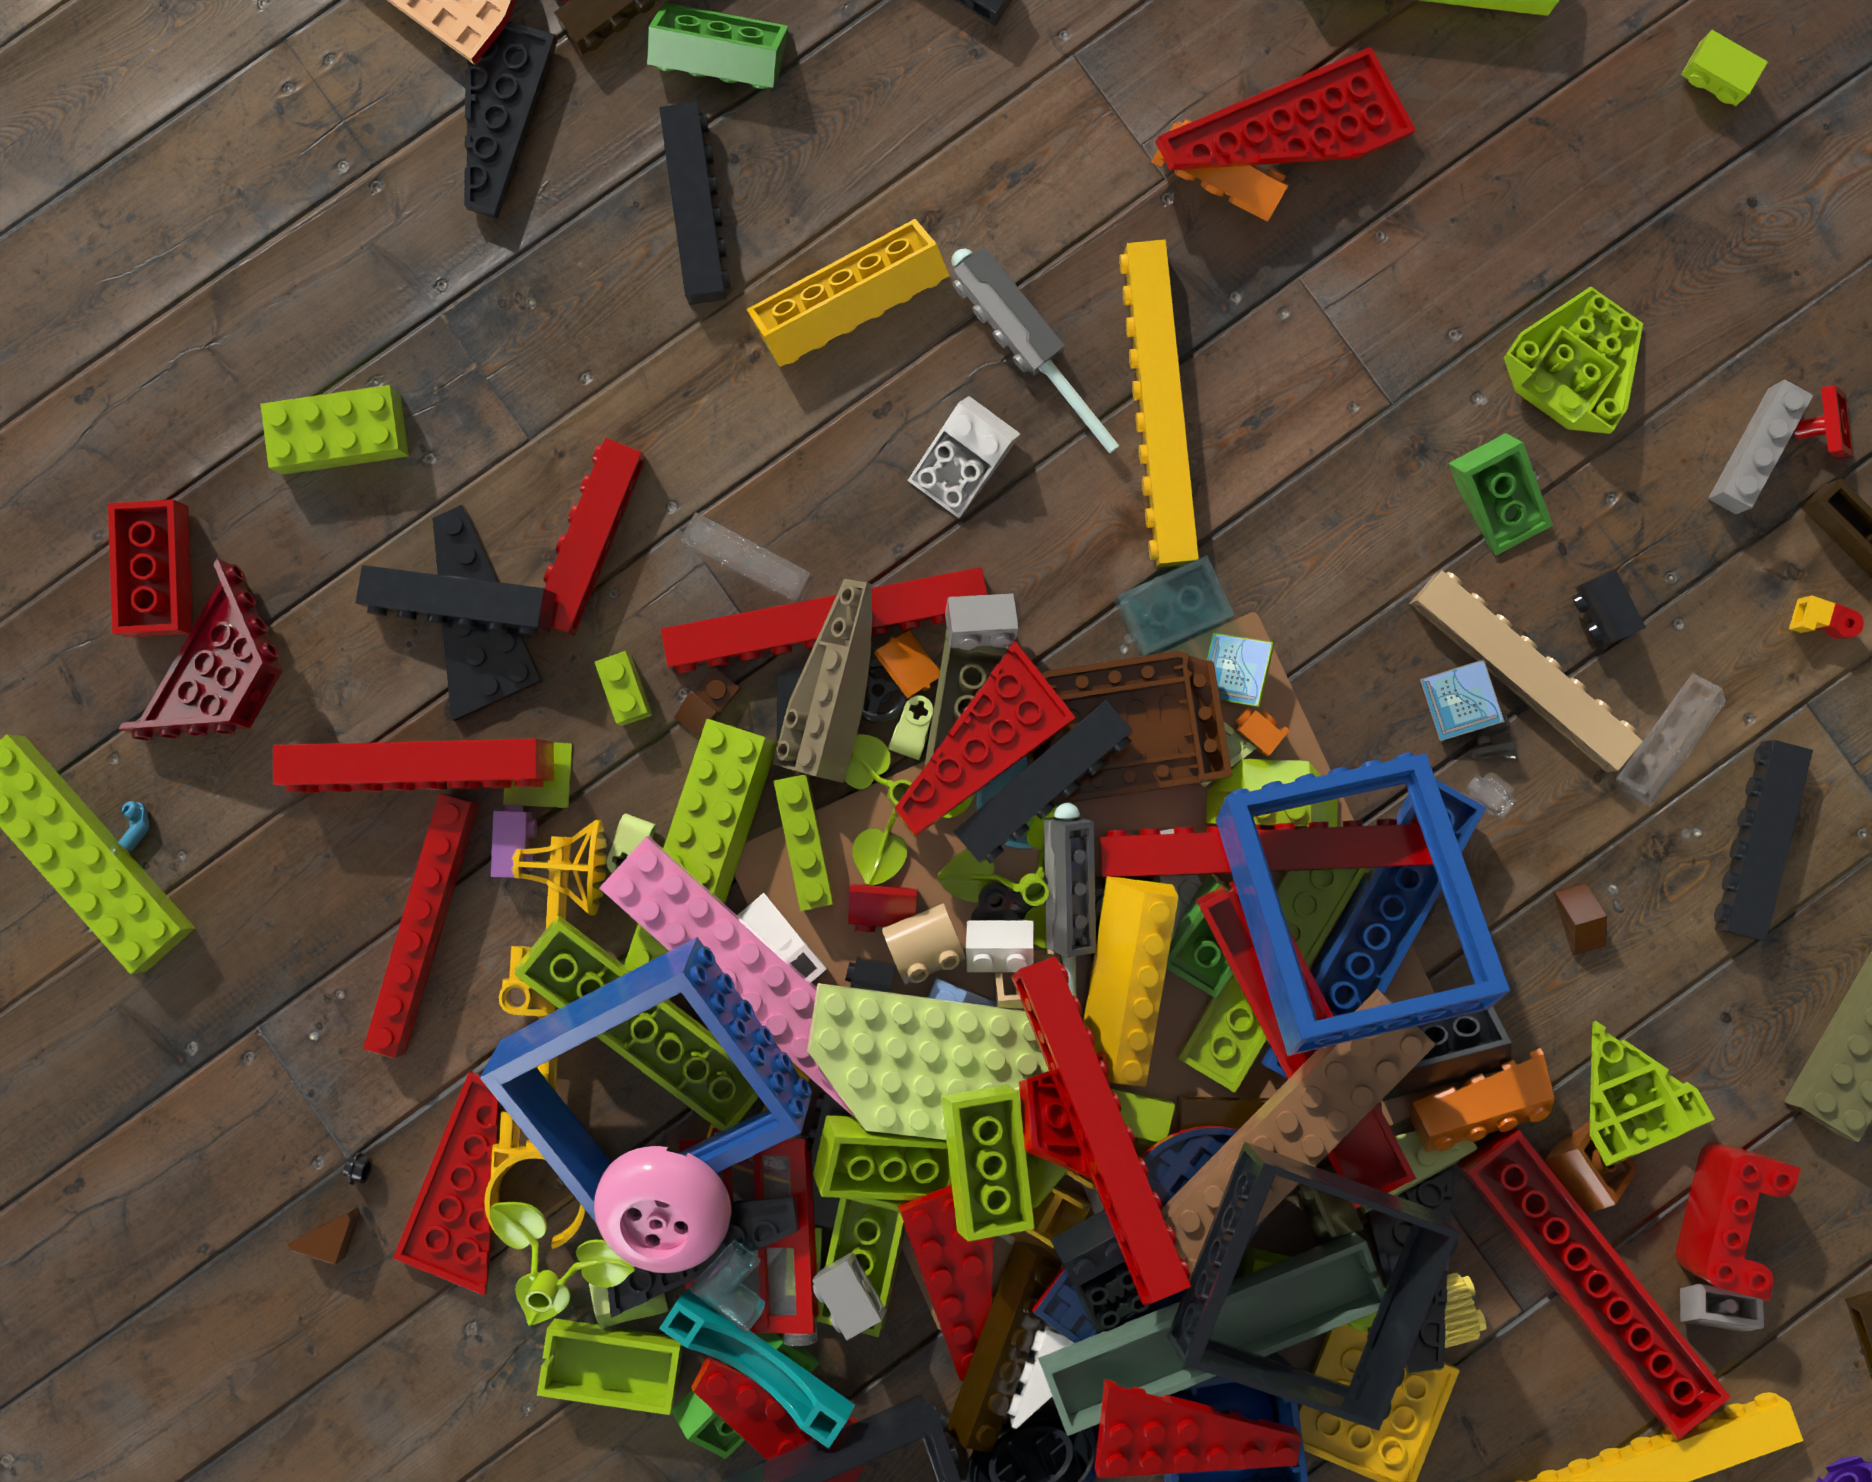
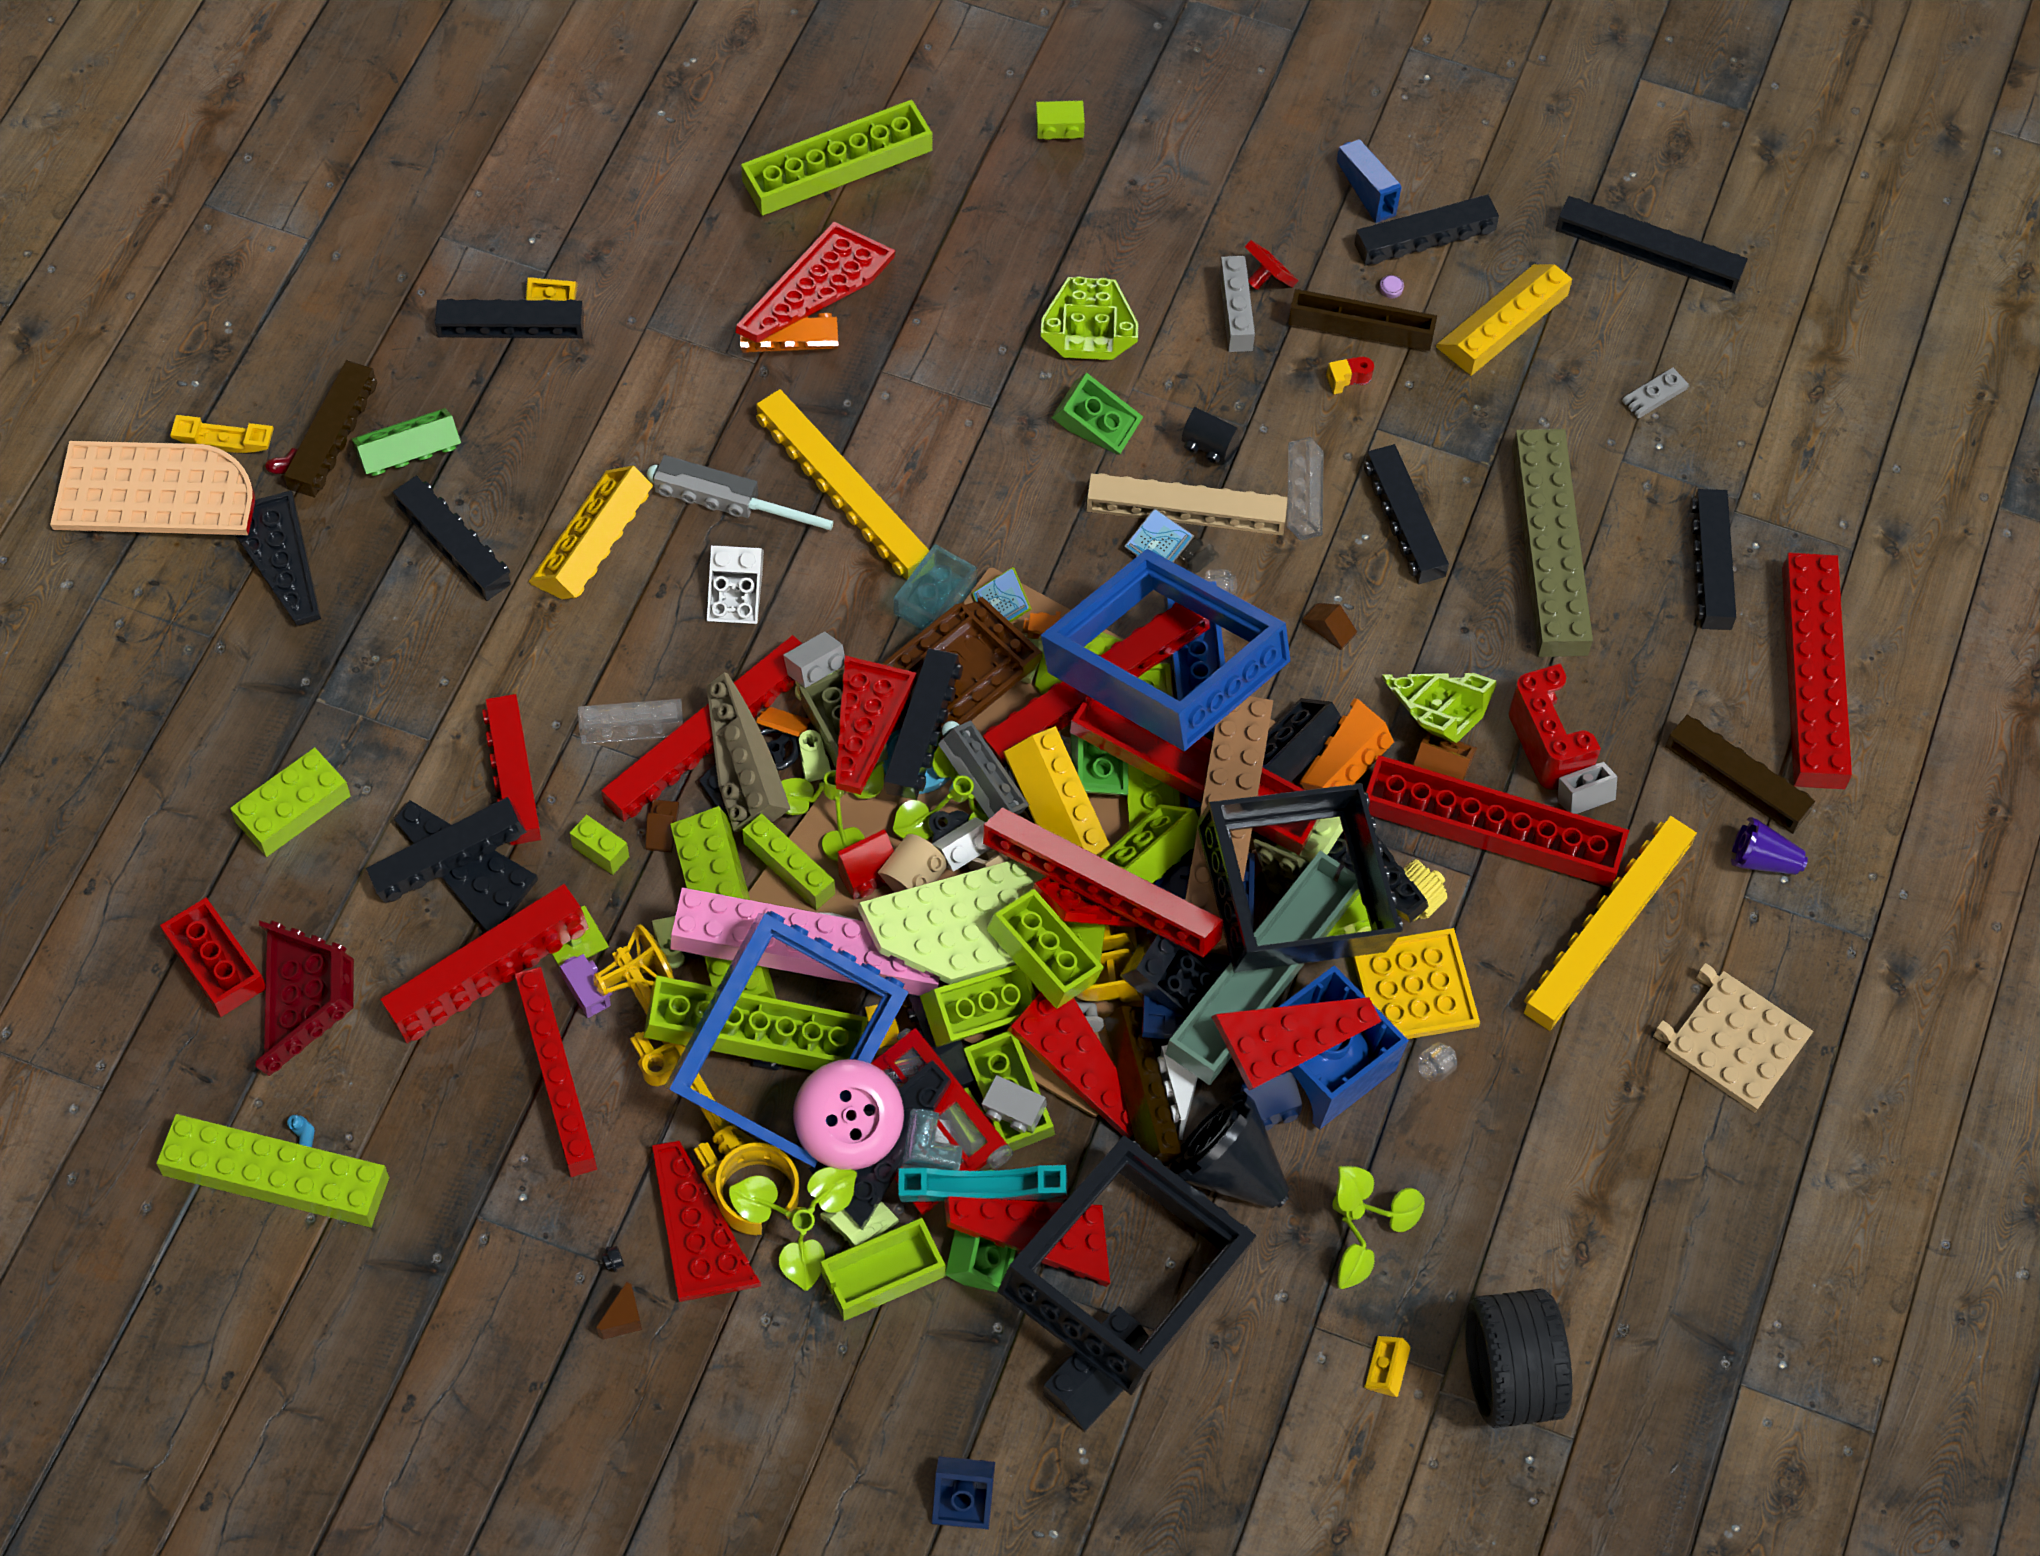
camera: 35 degrees left, 25 degrees down
(1187, 1098) = (1155, 842): none -> lime brick

